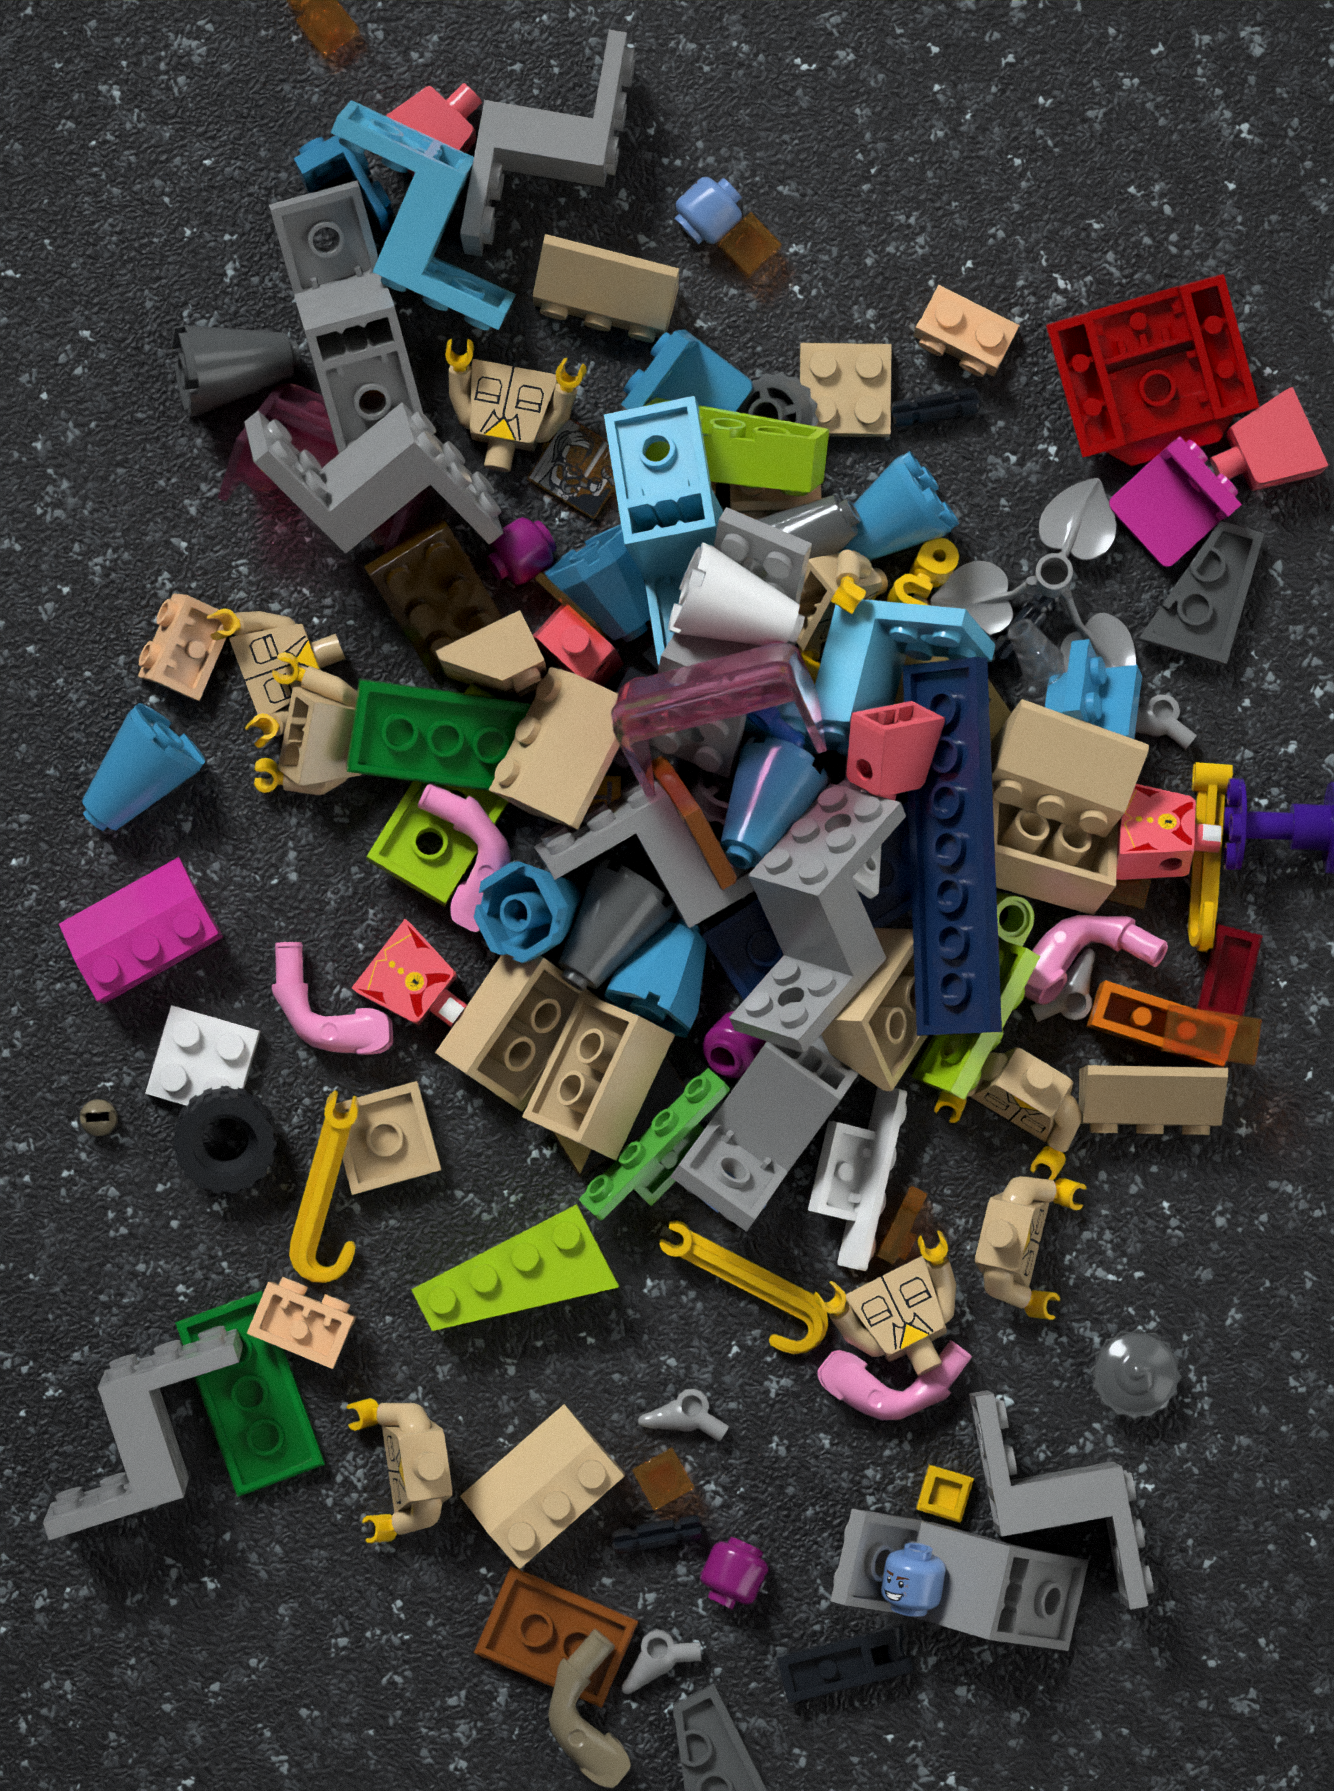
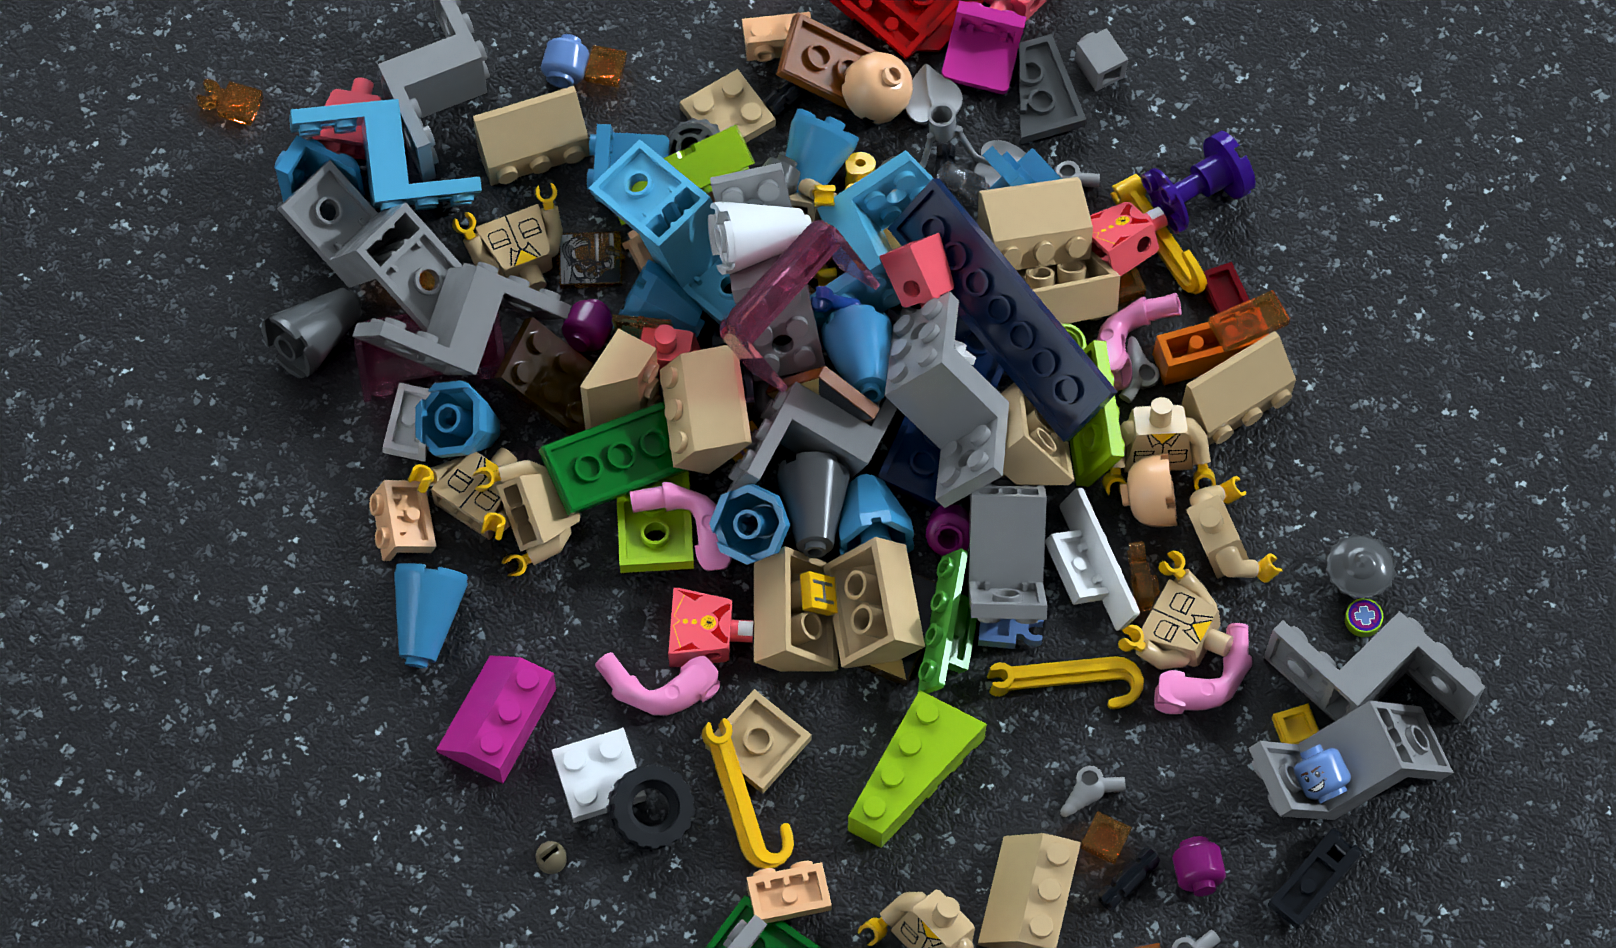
camera: 35 degrees left, 20 degrees down
(267, 541) = (400, 434): none -> white bracket
(297, 585) = (455, 420): none -> dark azure cone
(549, 1026) = (818, 593): none -> yellow tile
(976, 1146) = (1151, 491): none -> light nougat cylinder
(991, 414) = (818, 58): none -> dark orange tile
(1023, 473) = (877, 87): none -> light nougat cylinder
(1101, 1426) = (1363, 617): none -> tile
(1297, 598) = (1101, 59): none -> light grey brick

